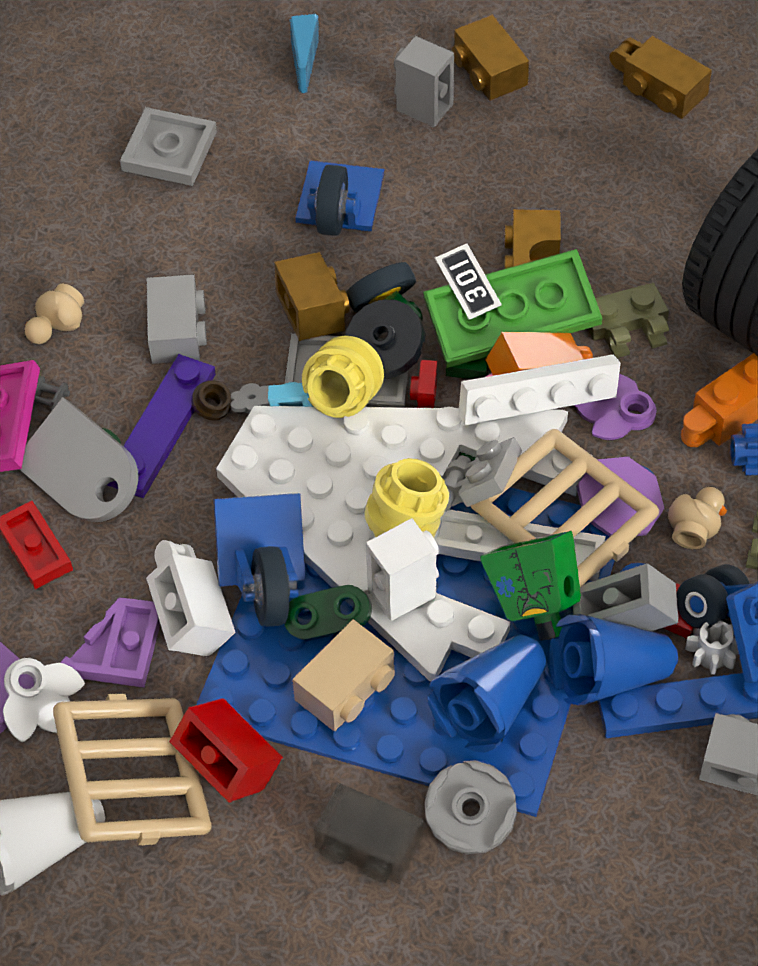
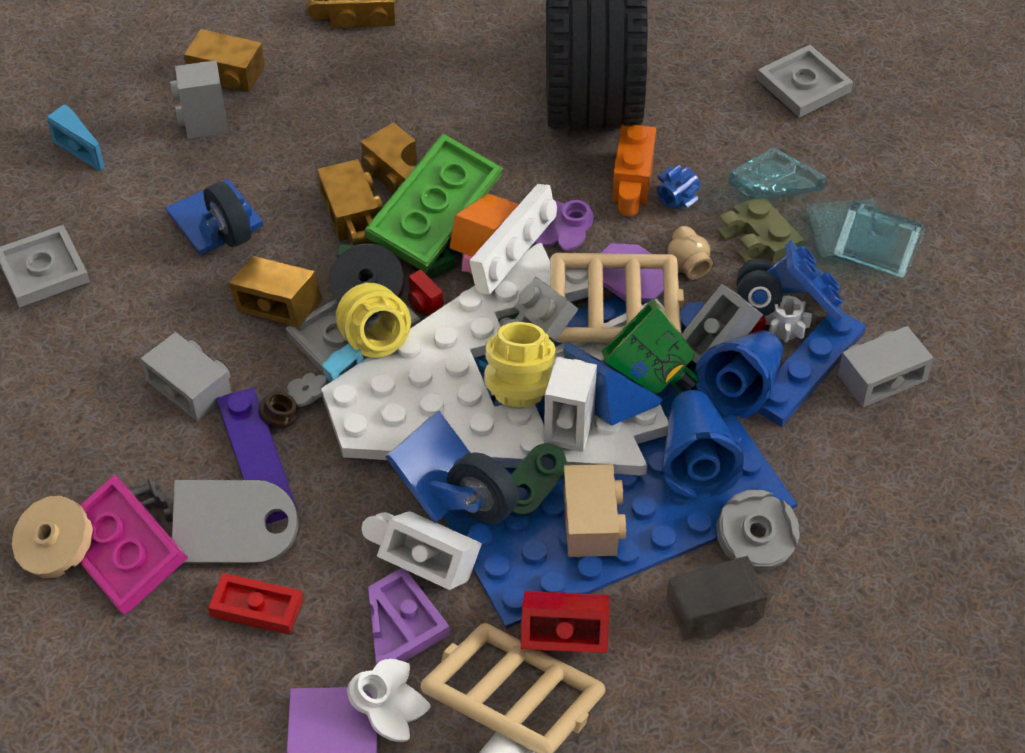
camera: 45 degrees left, 5 degrees down
(55, 310) = (83, 435): tan animal -> none
(380, 285) = (325, 247): black bush -> none
(455, 232) = (349, 200): none -> pearl gold brick
(464, 586) = (616, 394): none -> blue slope
(468, 281) = (390, 201): sticker -> none
(629, 311) = (516, 160): olive plate -> none

